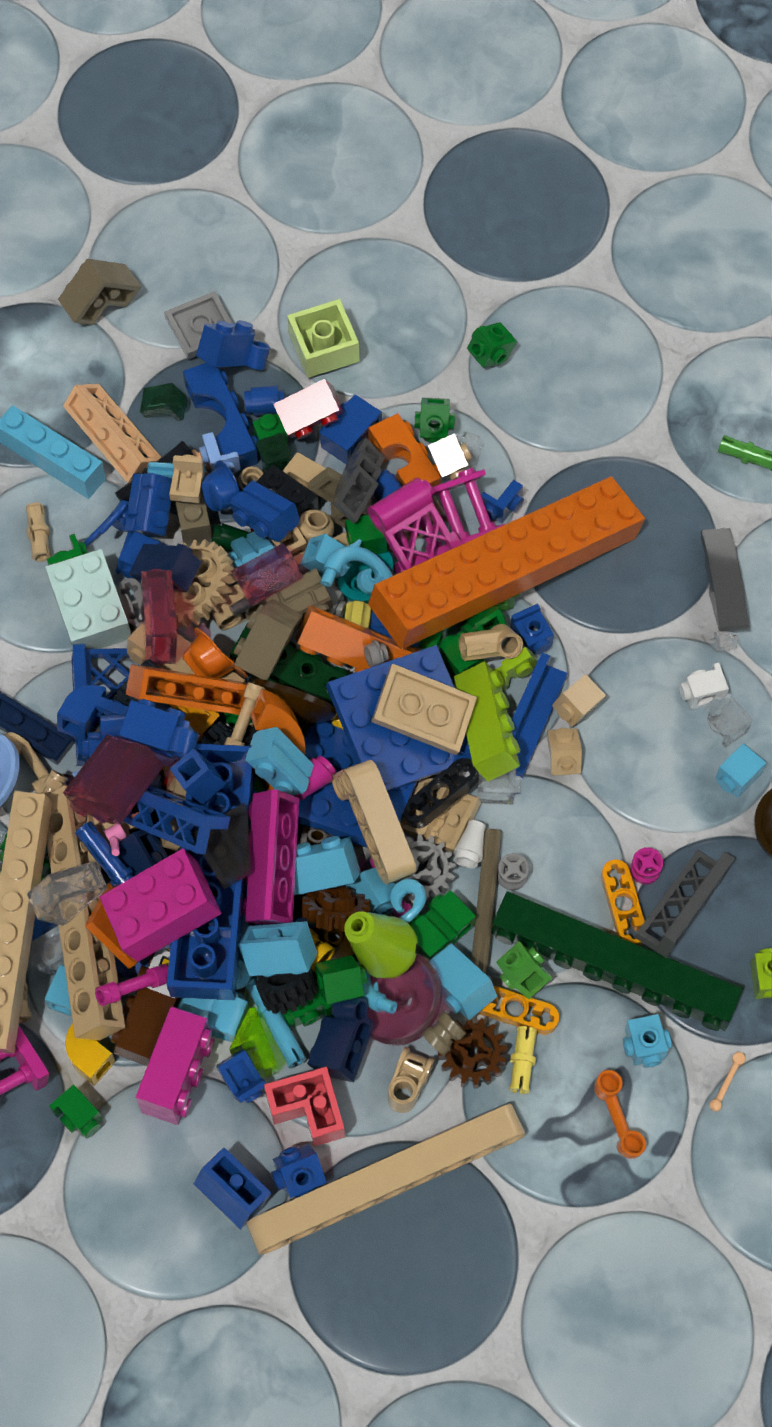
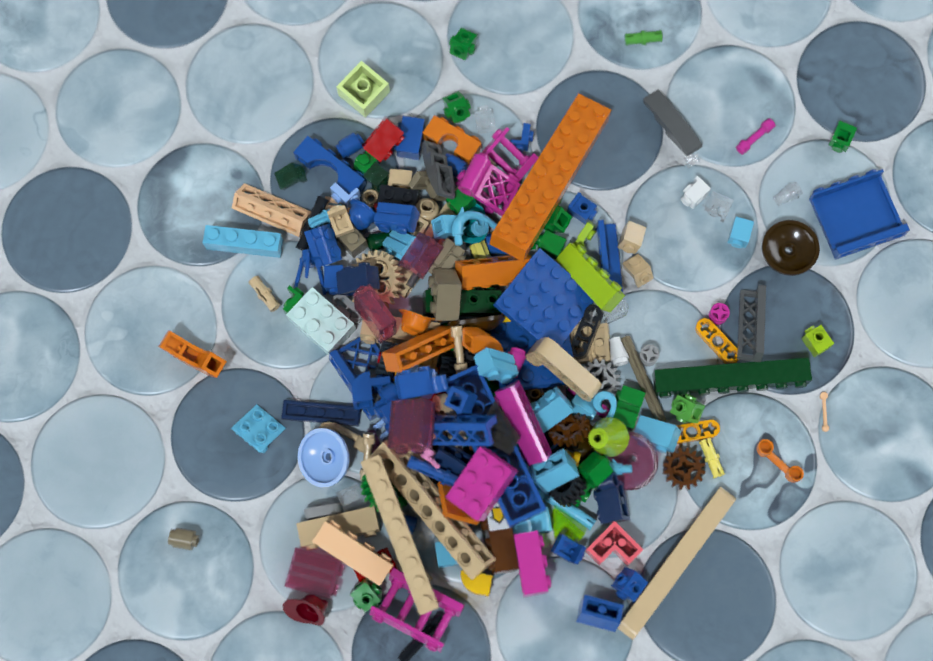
camera: 25 degrees left, 10 degrees up
(66, 893) = (424, 503): clear slope -> none
(77, 1112) = (490, 617): green brick -> none
(95, 288) = (210, 124): dark tan brick -> none
(112, 992) = (481, 546): dark pink bar -> none
(189, 320) = (284, 116): light grey plate -> none
(232, 345) = (314, 121): blue hinge -> none
(375, 653) = (509, 271): light grey plate -> none
(410, 1074) = (658, 498): tan piece -> none
(424, 709) = (556, 290): tan plate -> none
(443, 1034) = (666, 469): dark tan wheel -> none
(450, 456) = (481, 127): brick -> none
(488, 643) = (570, 227): tan piece -> none
(646, 1041) = (773, 413): medium azure brick -> none

